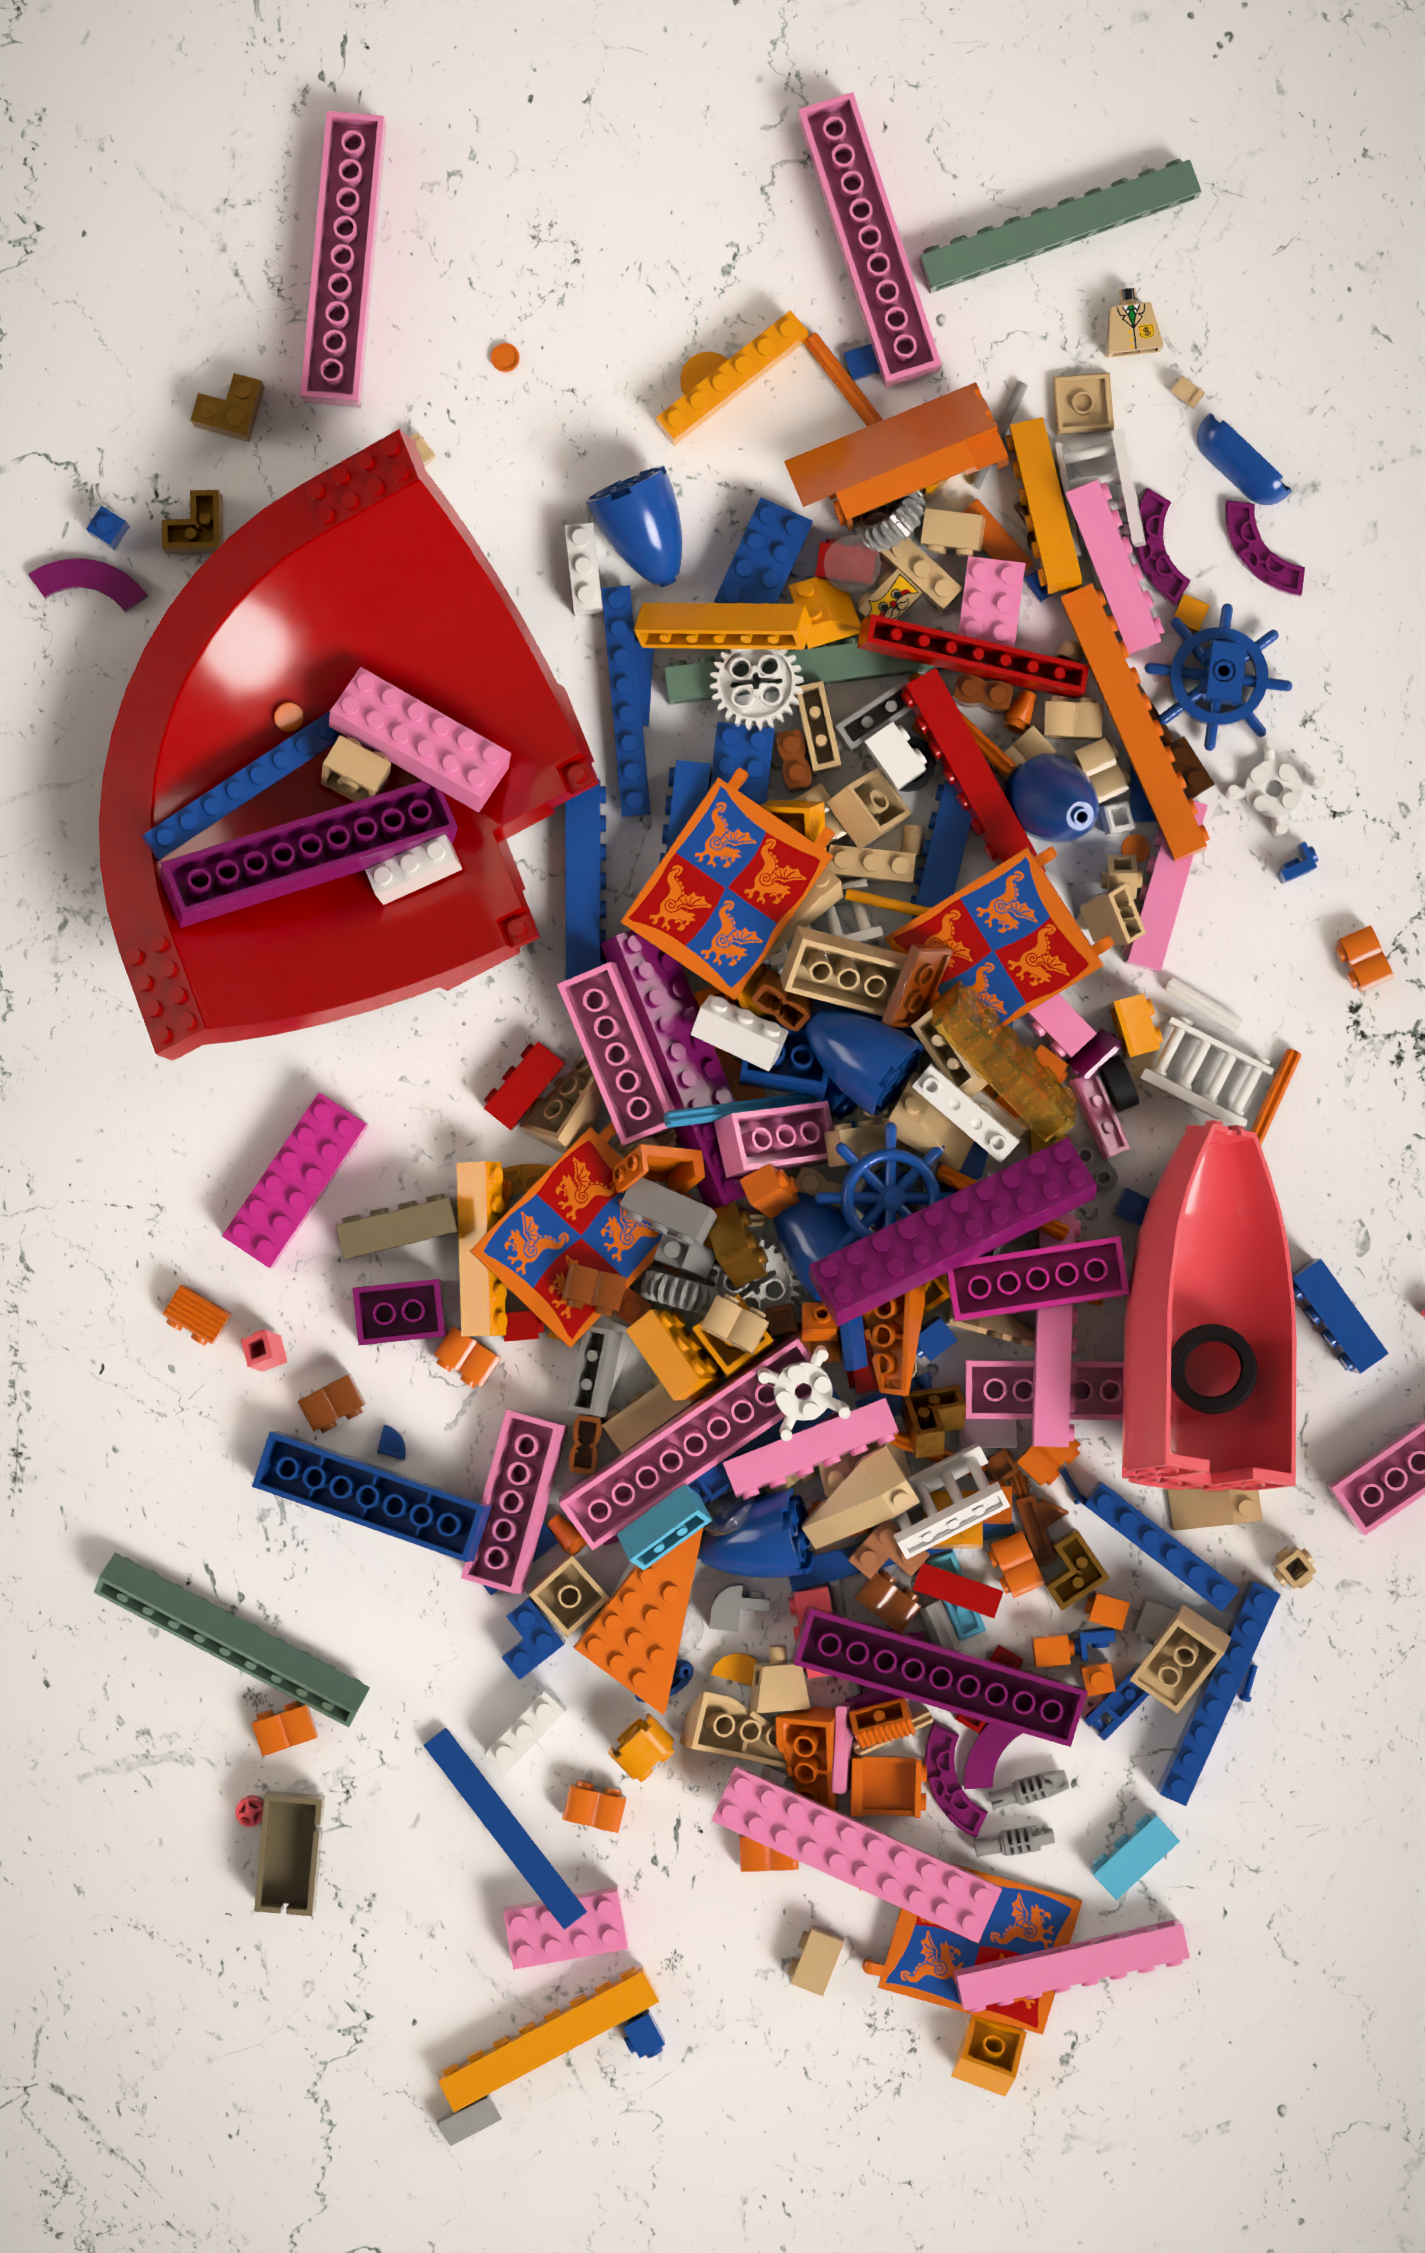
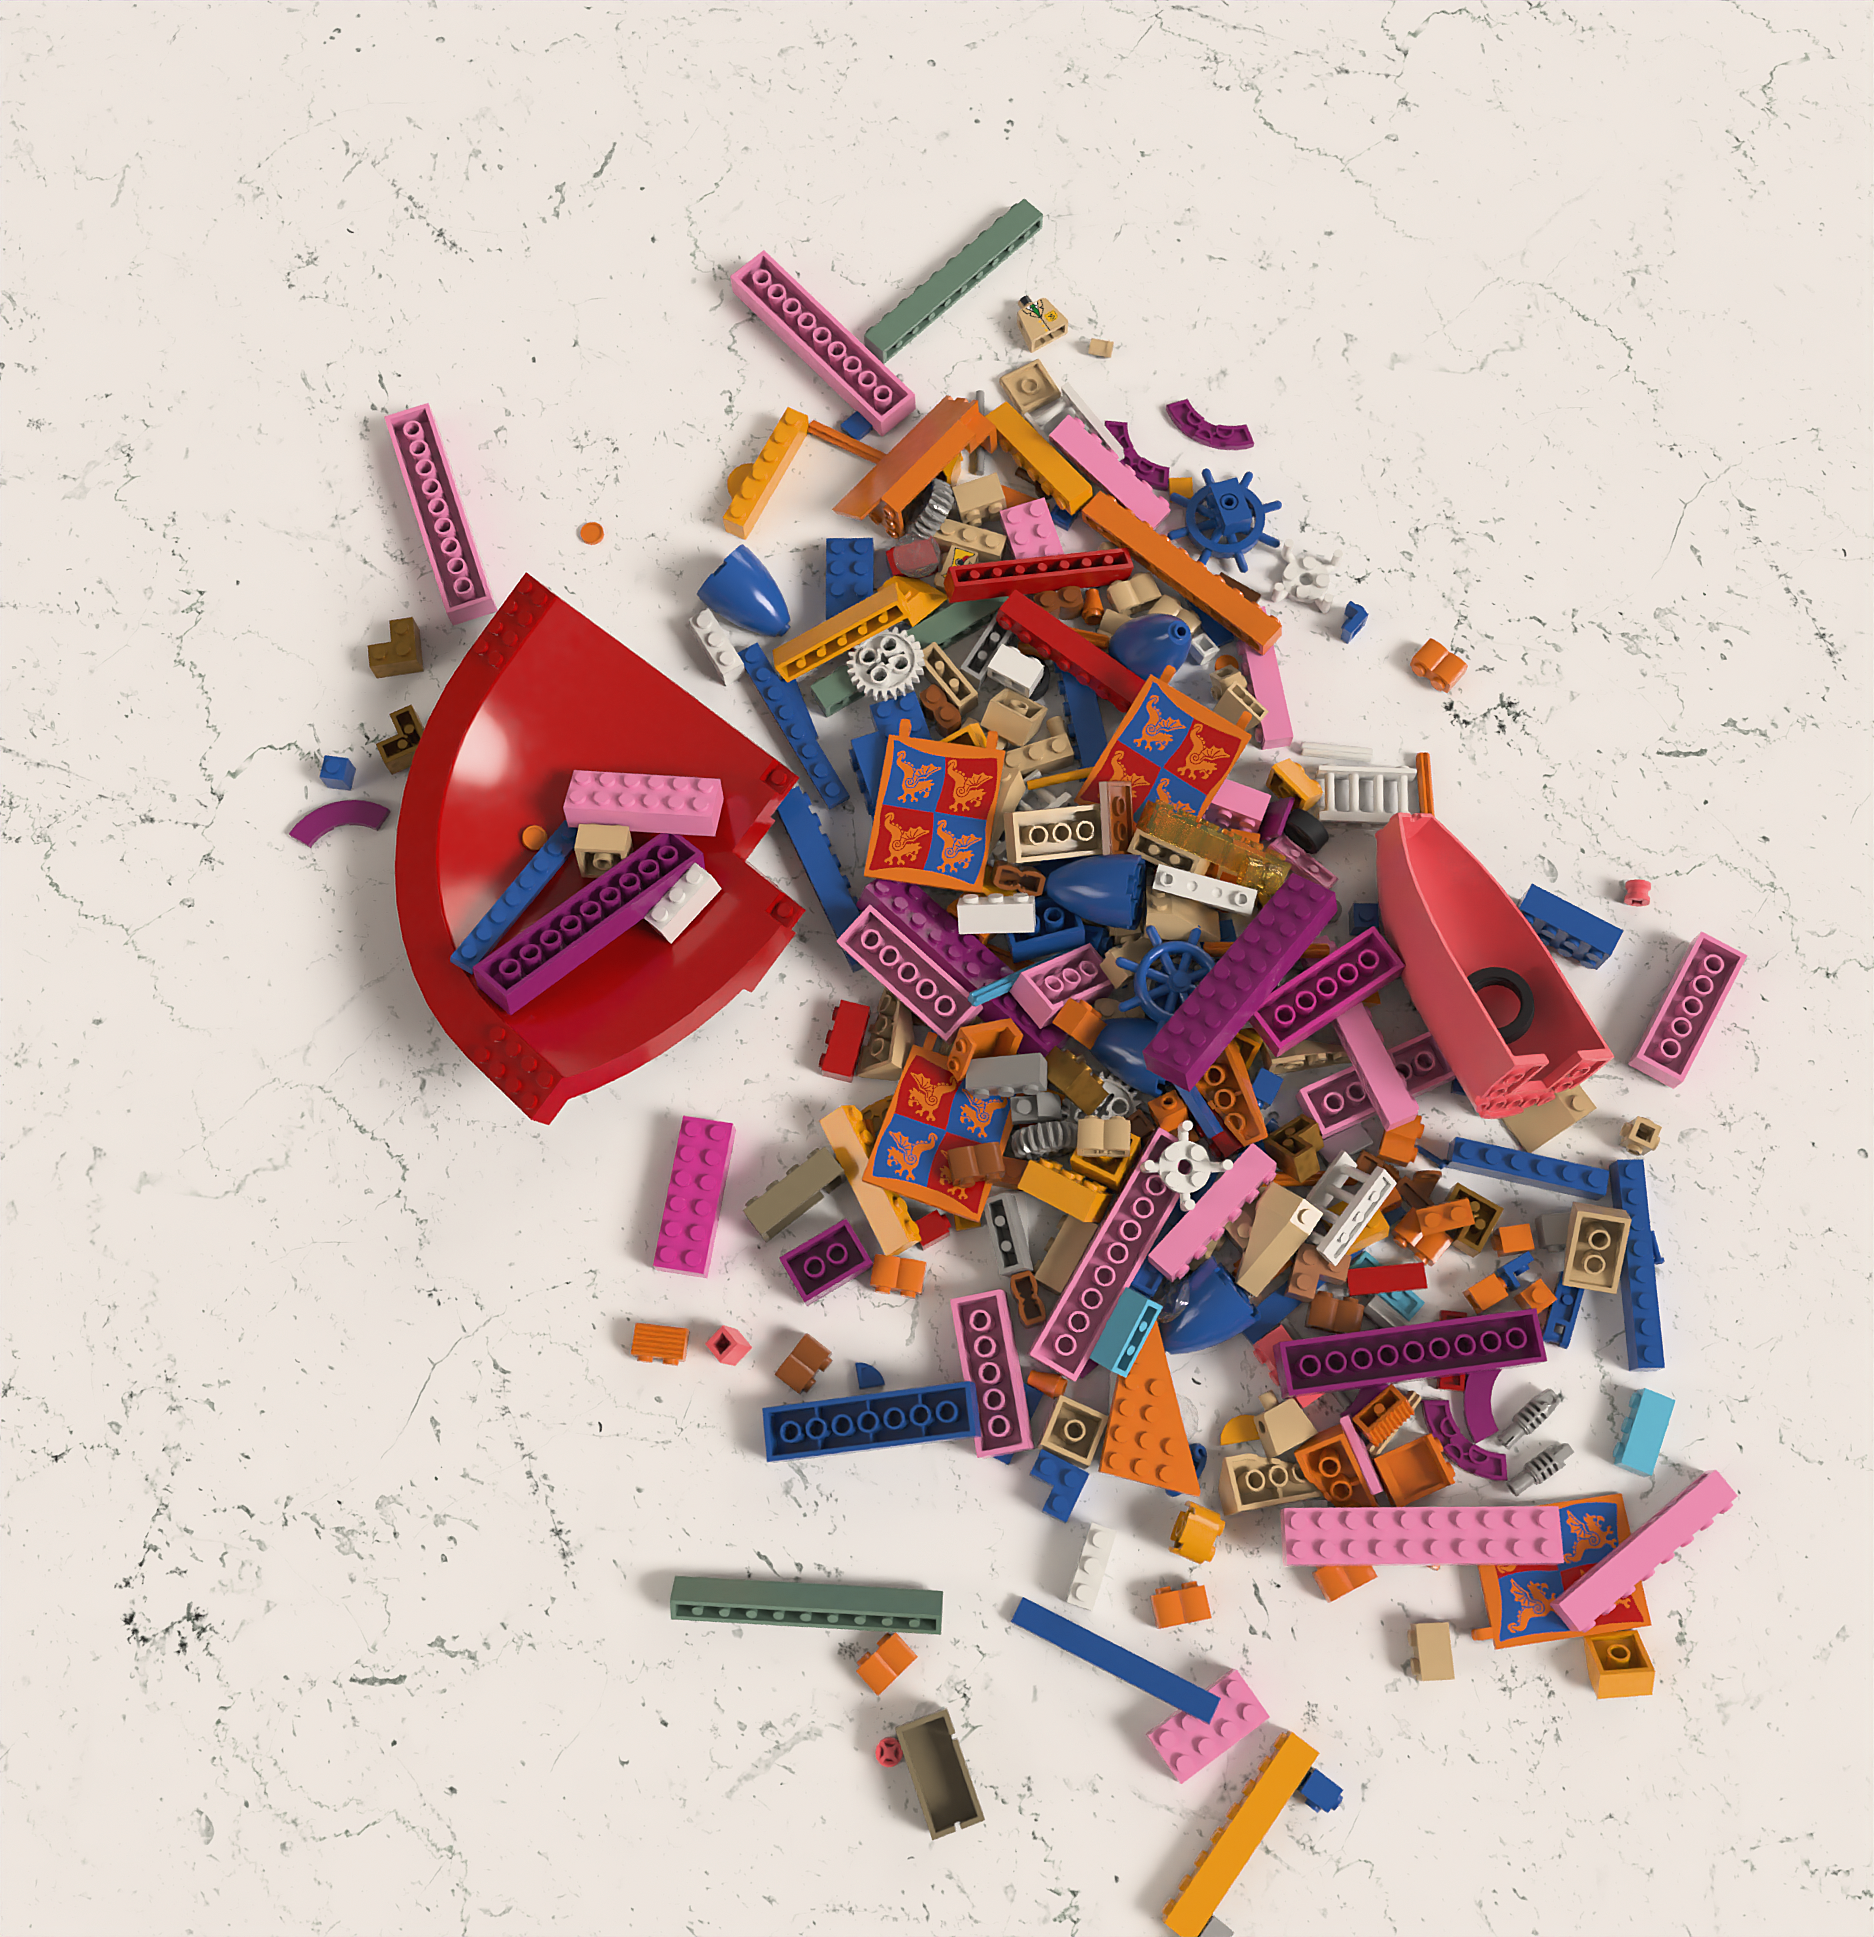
camera: 20 degrees left, 15 degrees down
(727, 1606) = (1207, 1380): light grey brick -> none
(1033, 1127) = (1260, 876): none -> clear yellow wheel
(1043, 1560) = (1445, 1216): none -> orange brick
(1240, 462) = (1163, 375): blue brick -> none

